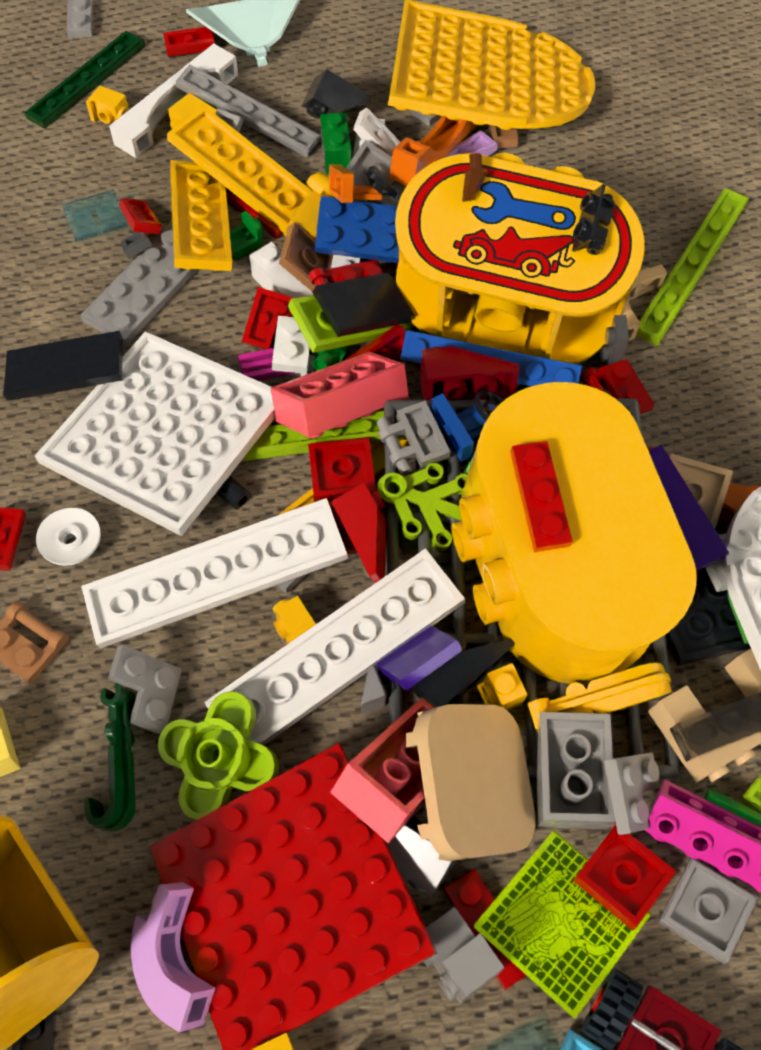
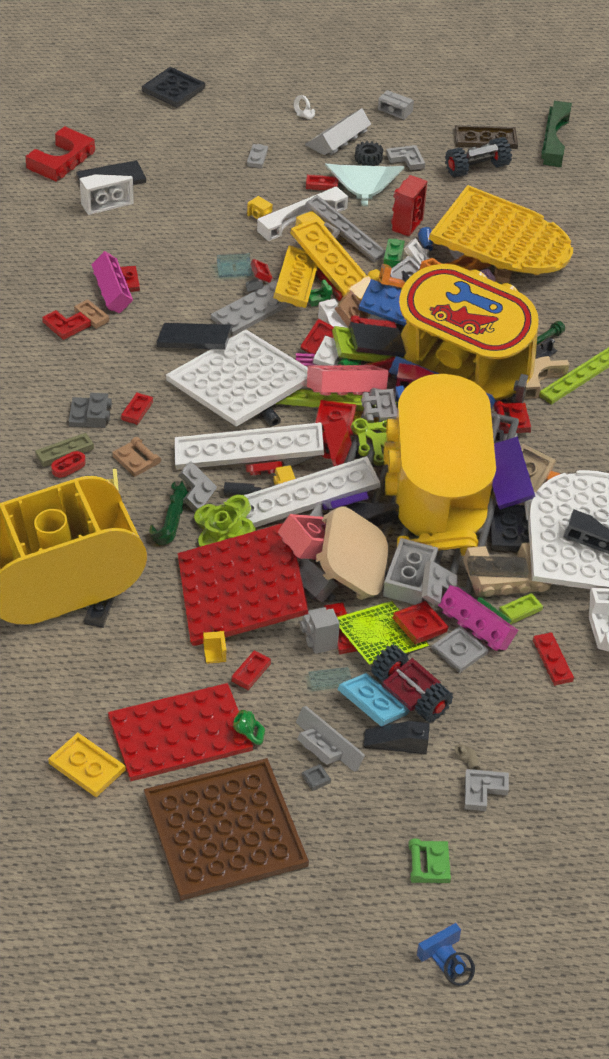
camera: 15 degrees right, 15 degrees down
(60, 527) = (173, 415): white dish -> none
(84, 79) = (250, 191): dark green tile -> none
(158, 964) = (170, 588): lavender arch -> none
(224, 663) = (233, 488): none -> black cylinder
(240, 610) = (255, 469): none -> red plate
(332, 95) = (400, 229): black slope -> none
(334, 41) = (409, 205): none -> red brick
(376, 103) = (423, 236): none -> blue cone
(473, 177) = (451, 276): reddish brown bar -> none
(503, 688) = (387, 525): yellow brick -> none
(541, 496) = (425, 421): red plate -> none
(595, 209) = (506, 316): black hinge -> none

